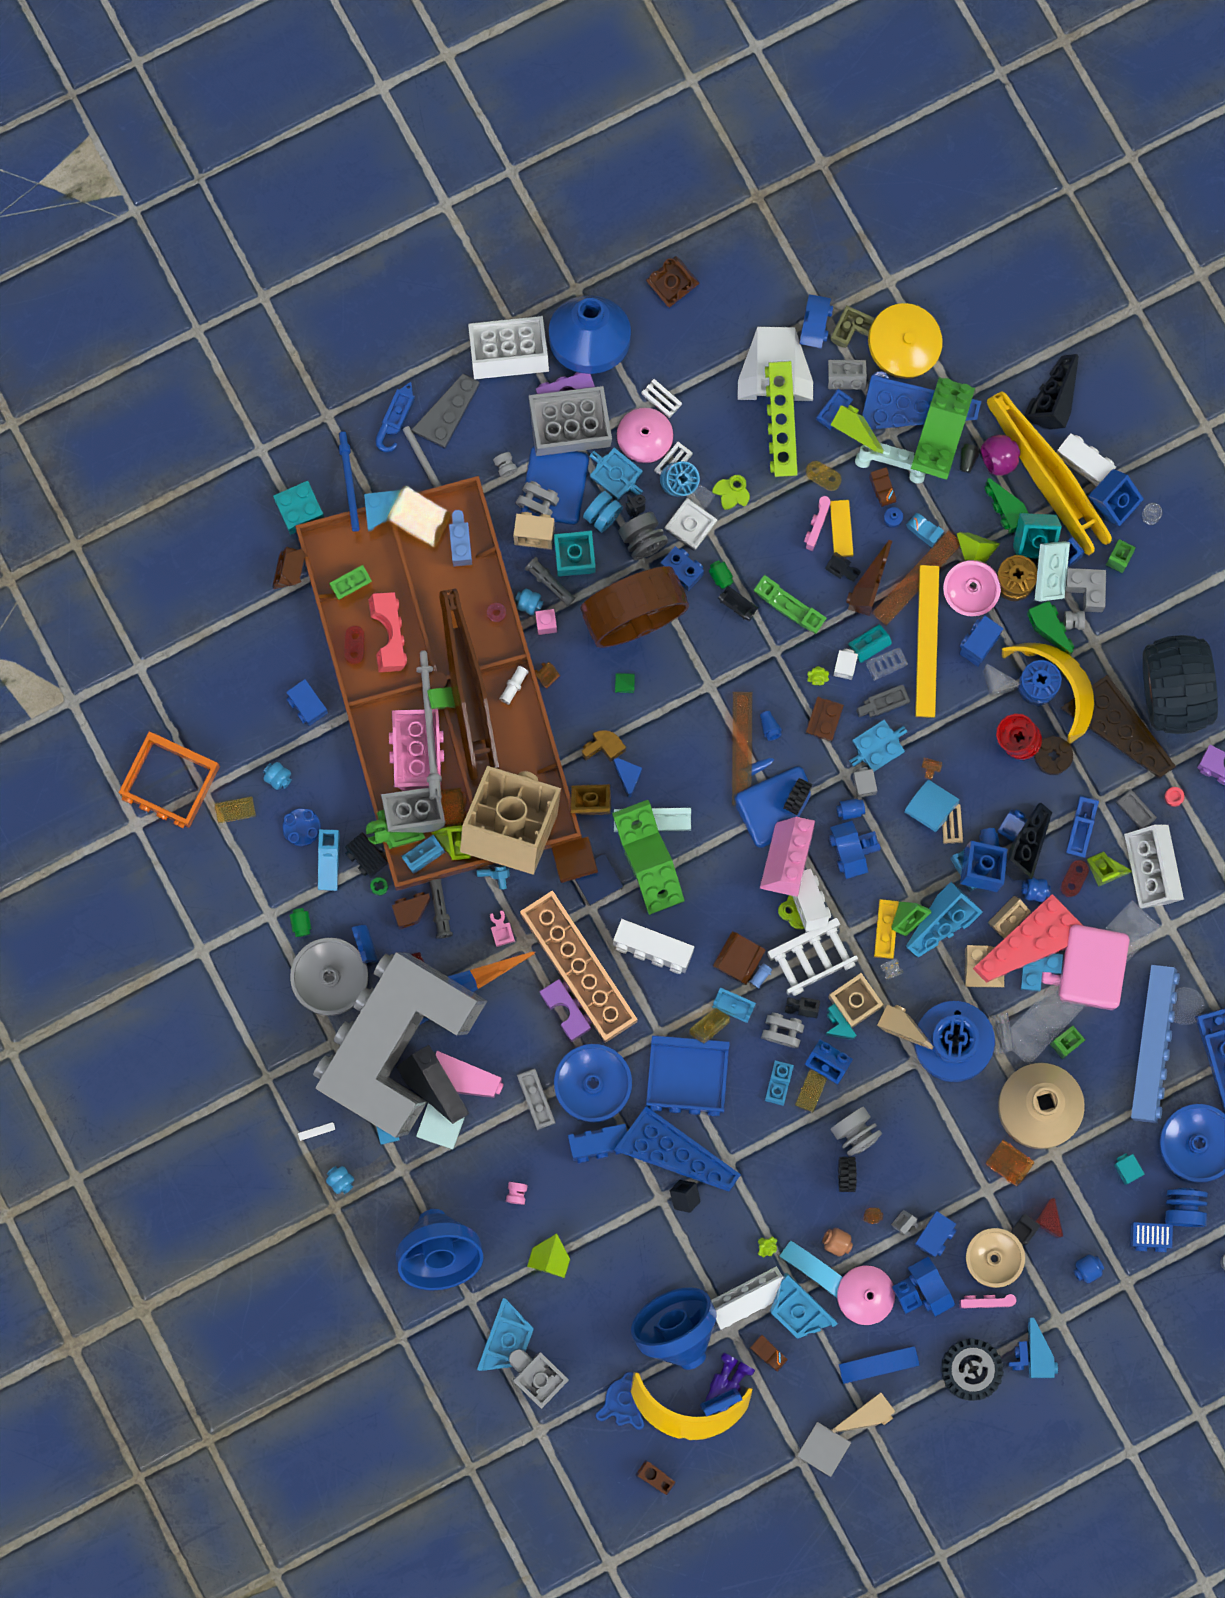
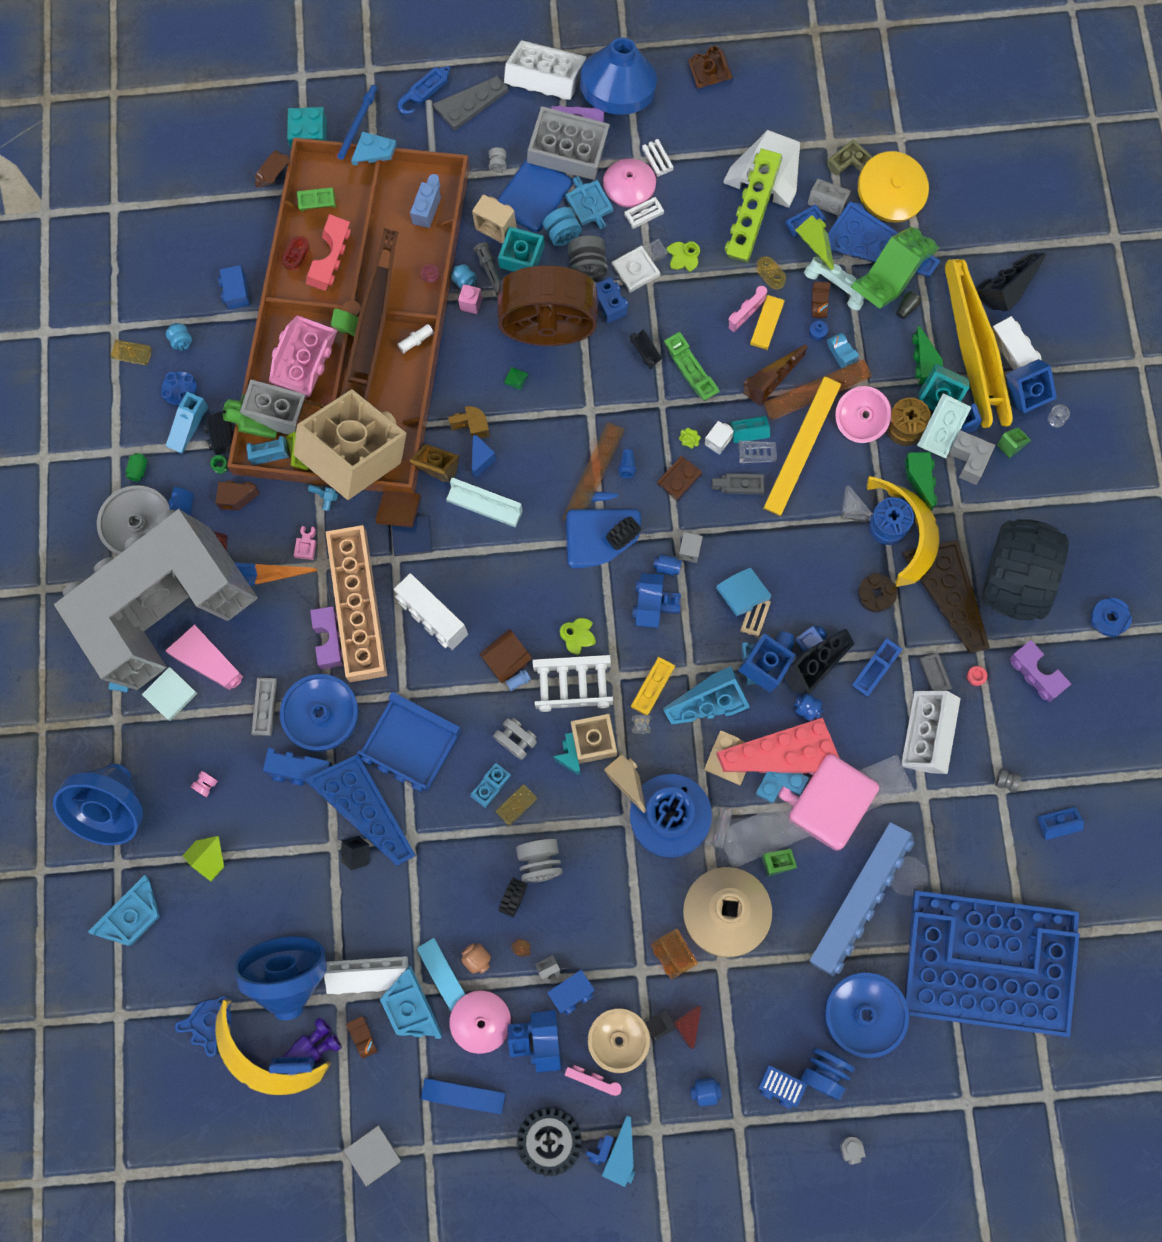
camera: 30 degrees right, 5 degrees down
(185, 753) = (70, 281): orange window -> none
(316, 1131) = (60, 653): white sticker -> none
(340, 1180) = (55, 704): dark azure piece -> none
(419, 516) = (400, 167): clear yellow tile -> none
(429, 1080) = (174, 648): black wedge -> none
(433, 778) = (303, 384): light grey bar -> none
(441, 917) = (257, 513): dark grey pin -> none
(533, 490) = (511, 188): light grey brick -> none
(536, 1376) = (137, 963): light grey brick -> none
(547, 674) = (450, 344): clear orange tile -> none
(635, 505) = (593, 227): black hinge -> none
(648, 857) = (462, 531): bright green bracket -> none
(655, 1477) = (200, 1111): reddish brown leg -> none
(686, 472) = (650, 224): dark azure wheel -> none
(709, 1025) = (449, 705): clear yellow plate -> none
(721, 574) = (642, 318): green brick -> none
(734, 1005) = (481, 696): dark azure hinge -> none
(767, 1246) = (408, 934): lime plant -> none
(788, 856) = (590, 582): bright pink slope -> none
(805, 1006) = (545, 725): black plate -> none
(811, 903) = (591, 628): white brick -> none
(815, 321) = (817, 146): blue brick -> none
(828, 1061) = (543, 784): blue brick -> none
(840, 566) = (751, 353): black plate -> none
(871, 1414) = (432, 1141): tan slope -> none
(878, 746) = (717, 520): dark azure plate -> none
(909, 917) = (677, 683): bright green slope -> none
(931, 766) = (758, 557): clear orange tile -> none
(976, 547) = (883, 382): lime slope -> none
(979, 643) = (852, 462): blue brick -> none
(1000, 454) = (938, 310): magenta wheel -> none
(1009, 917) = (773, 722): tan slope -> none
(1016, 727) = (851, 560): red wheel -> none
(1074, 620) = (951, 482): light grey wheel -> none
(1074, 878) = (850, 711): clear red plate -> none
(1106, 869) = (884, 716): lime slope -> none
(1128, 1168) = (787, 1009): teal brick -> none

